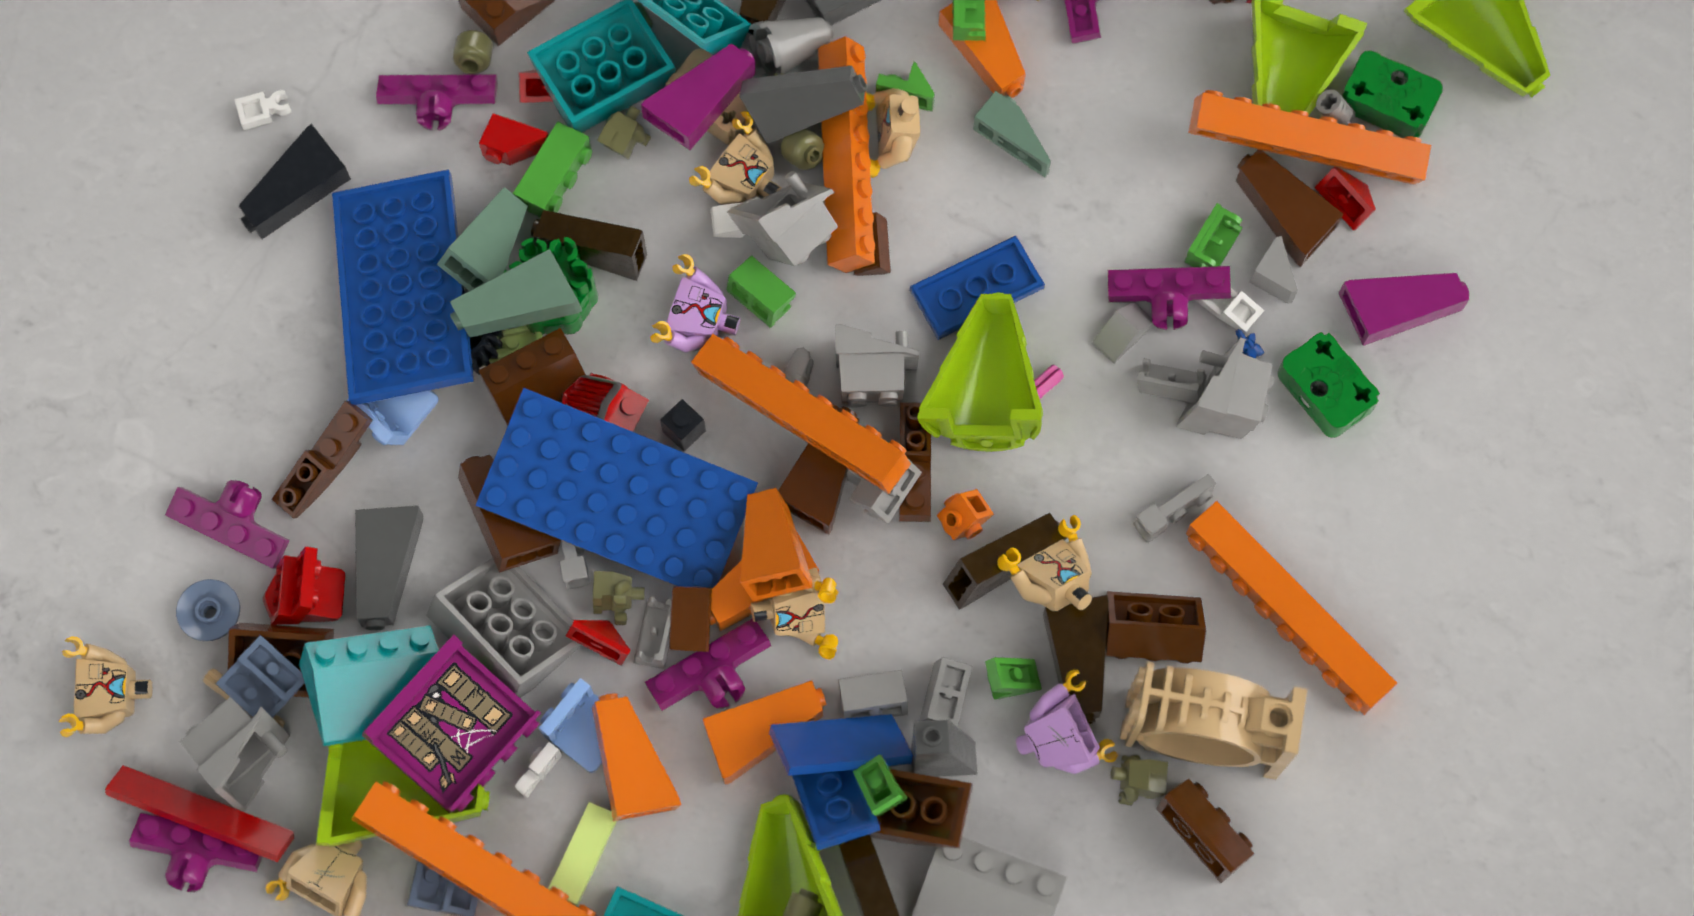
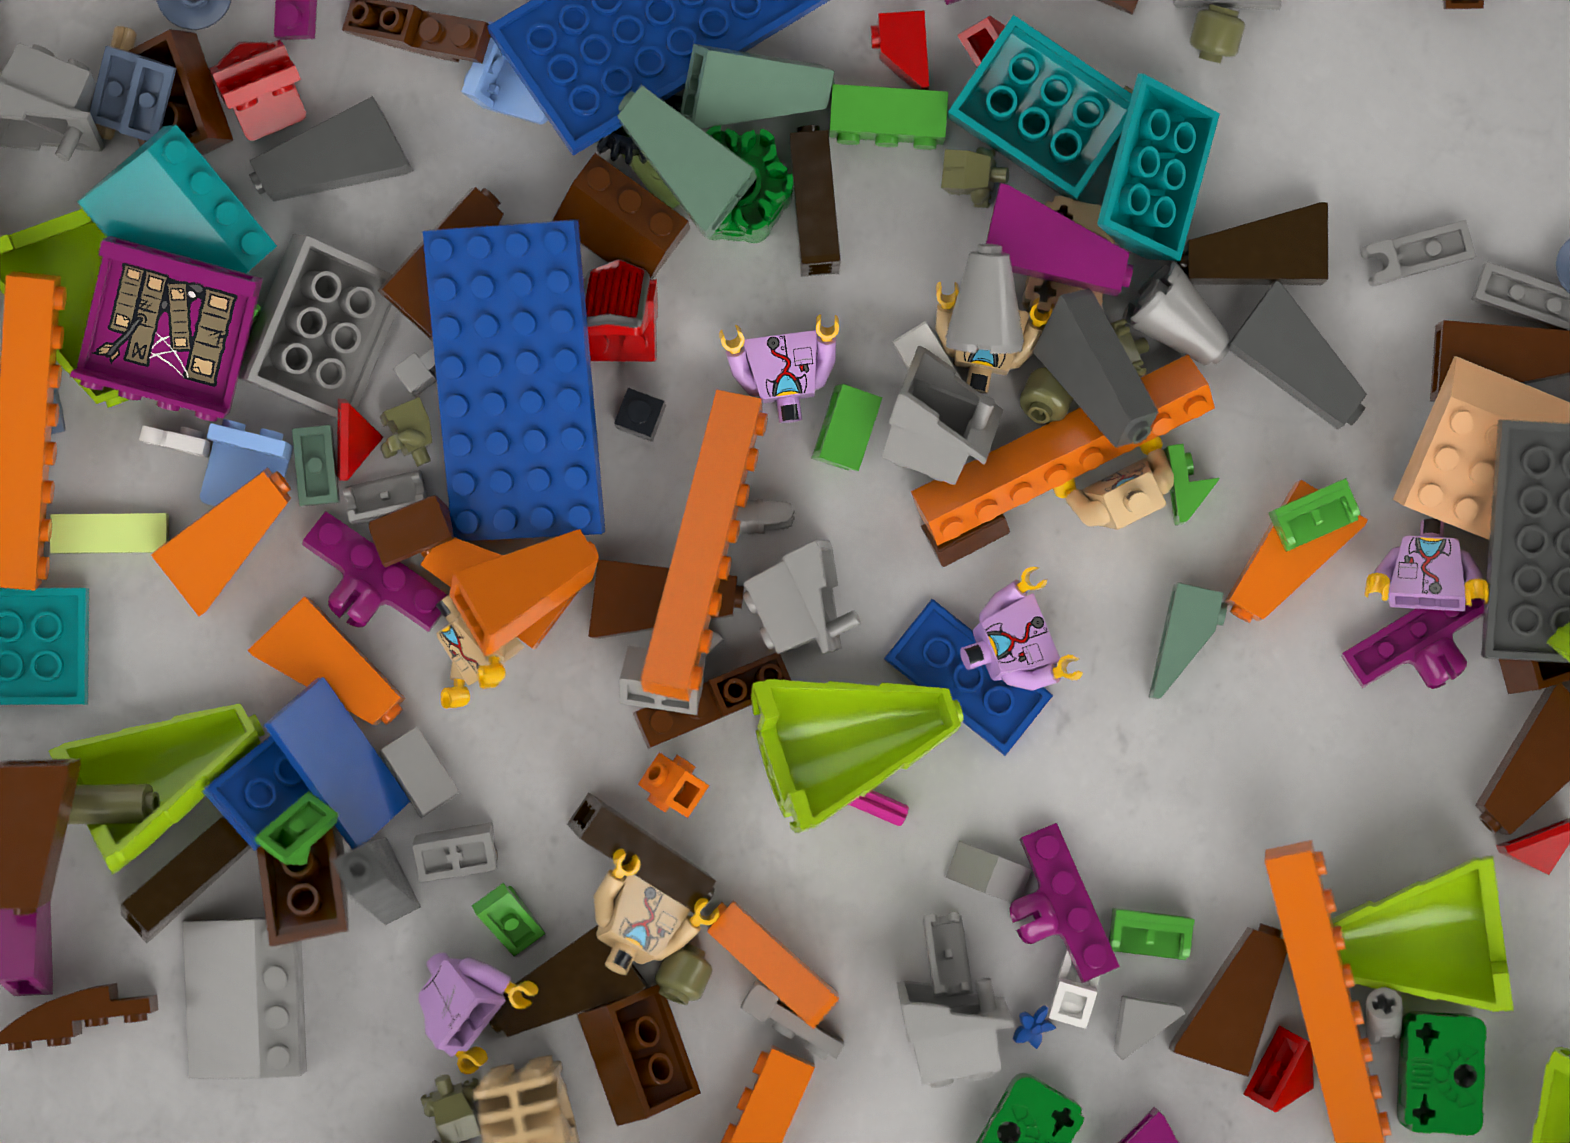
camera: 65 degrees right, 15 degrees up
(607, 674) = (315, 465): none -> sand green plate
(721, 146) = (986, 305): none -> light grey cone
(967, 238) = (1016, 640): none -> lavender torso
(1109, 568) = (684, 975): none -> olive head
(1129, 497) = (773, 964): none -> orange slope

